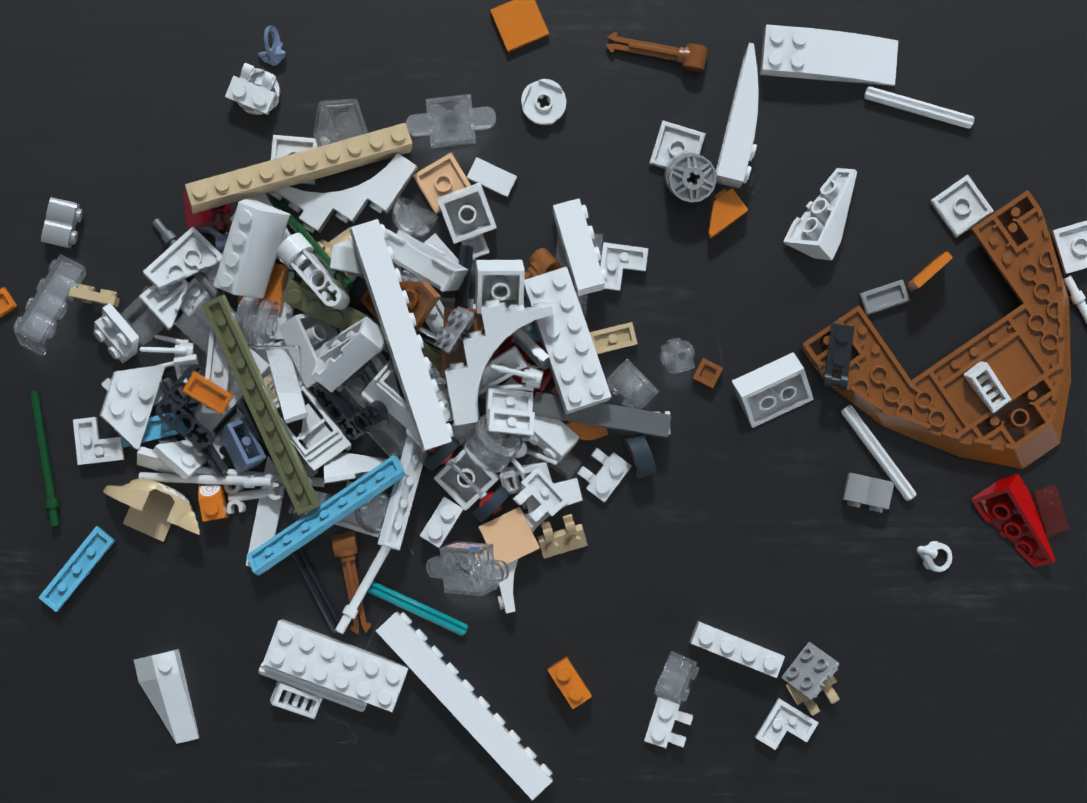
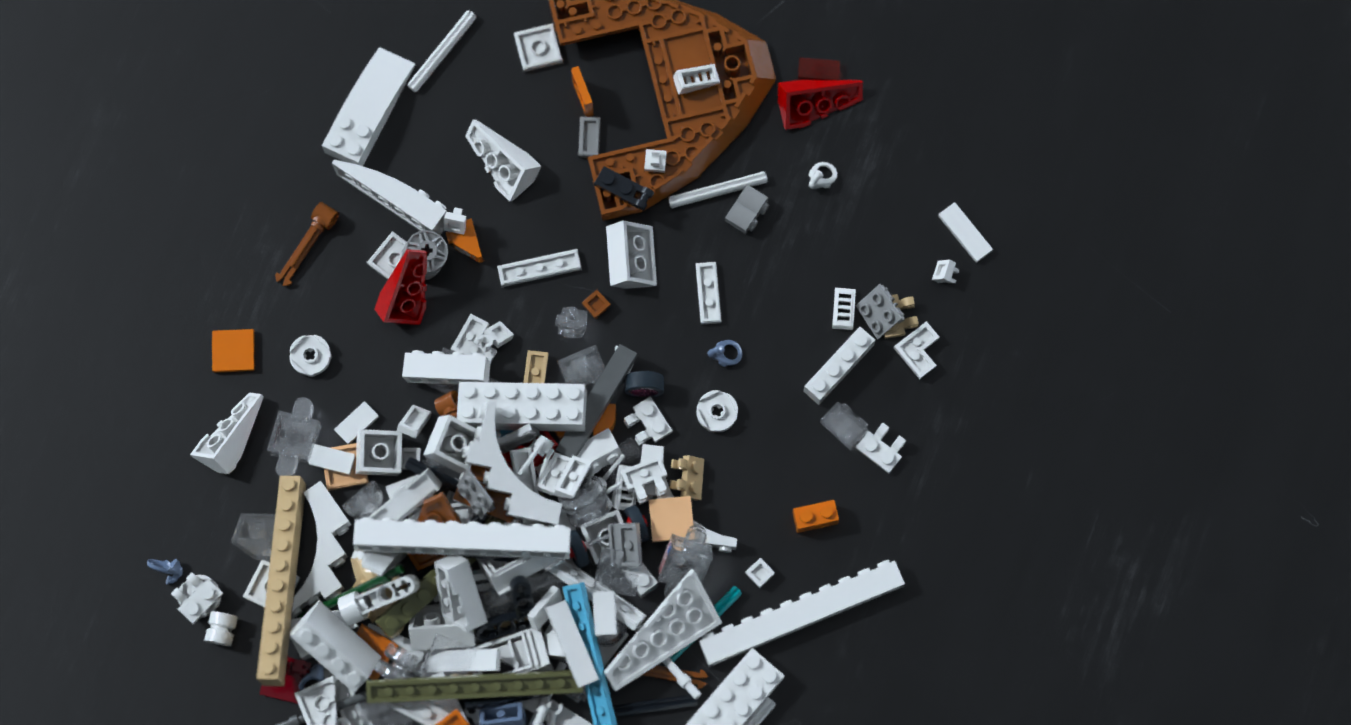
camera: 65 degrees left, 10 degrees down
(231, 126) = (221, 628): none -> white wheel
(339, 486) = (571, 644): none -> white tile
(369, 444) = (538, 614): none -> white tile
(382, 508) = (605, 613): none -> white tile
(401, 582) = (674, 625): none -> white wing
(418, 54) = (226, 445): none -> white wedge
(423, 498) = (609, 576): none -> clear plate
(443, 168) = (332, 459): none -> white tile
(462, 501) = (626, 538): none -> light grey plate
(490, 646) = (759, 572): none -> white plate
(513, 235) = (414, 421): none -> white tile
(635, 283) = (496, 334): none -> white plate
(642, 172) = (404, 293): none -> red wedge
(642, 527) = (721, 400): none -> white plate
(703, 519) = (717, 353): none -> sand blue piece
(724, 299) = (539, 267): none -> white tile
(736, 195) = (455, 221): none -> white tile
(764, 484) = (708, 293): none -> white tile
(783, 637) = (844, 324): none -> white slope
(879, 722) = (944, 271): none -> white tile
(881, 377) = (655, 161): none -> white tile
(931, 728) = (965, 232): none -> white tile

